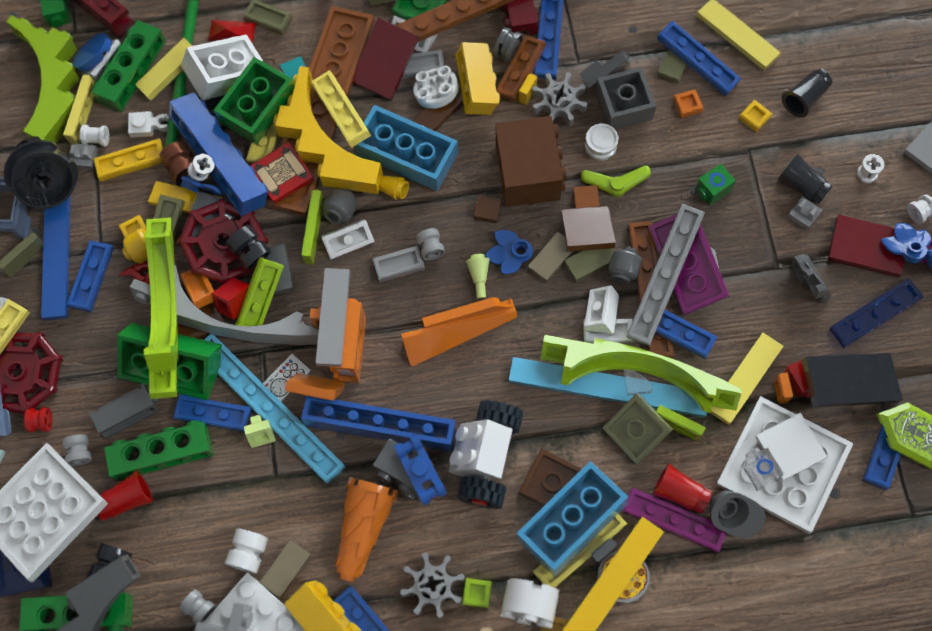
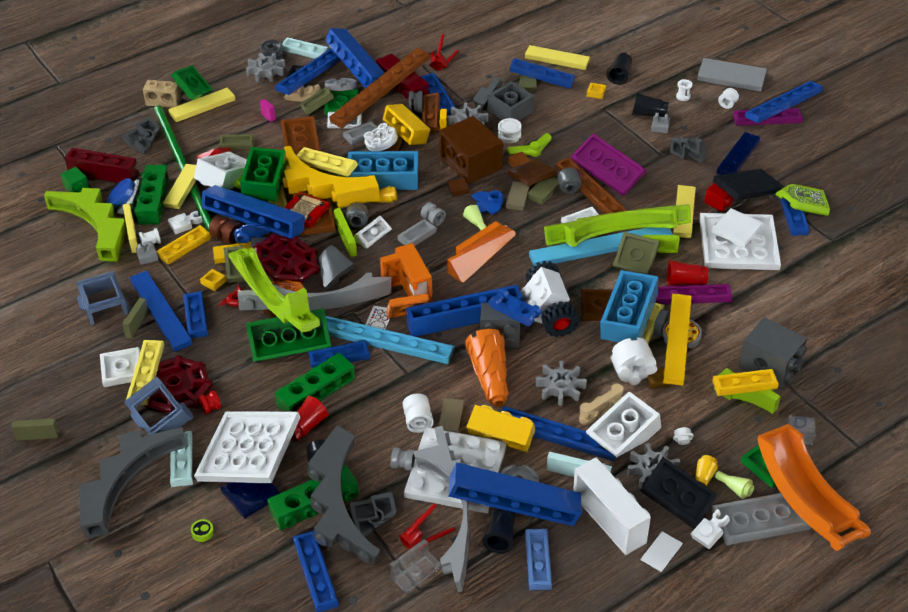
camera: 30 degrees left, 25 degrees down
(40, 173) = (129, 257): black piece -> none
(77, 450) = (249, 404): light grey wheel -> none
(124, 412) = (273, 374): dark grey window -> none
(135, 246) = (226, 280): yellow head -> none
(207, 167) = (248, 217): white bush -> none
(230, 297) = (315, 282): red brick -> none
(247, 239) = (303, 249): black wheel -> none
(259, 293) = (333, 268): lime tile -> none
(259, 432) = (382, 349): yellowish green tile -> none
(333, 317) = (400, 254): light grey tile -> none
(385, 58) = (337, 130): dark red tile -> none
(477, 593) = (594, 378): lime tile -> none
(602, 310) = (569, 207): white slope -> none
(636, 383) = (616, 234): clear tile -> none
(665, 275) = (599, 171): light grey tile -> none
(685, 334) = (625, 200): blue tile -> none
(688, 103) = (550, 98): orange tile -> none
(715, 184) = (596, 124): green brick -> none
(736, 514) = (729, 271): dark grey piece -> none
(761, 468) = (728, 241): clear brick -> none
(783, 388) = (710, 204): orange tile -> none
(860, 245) = (710, 126): dark red tile -> none
(908, 242) = (736, 114): blue plate -> none

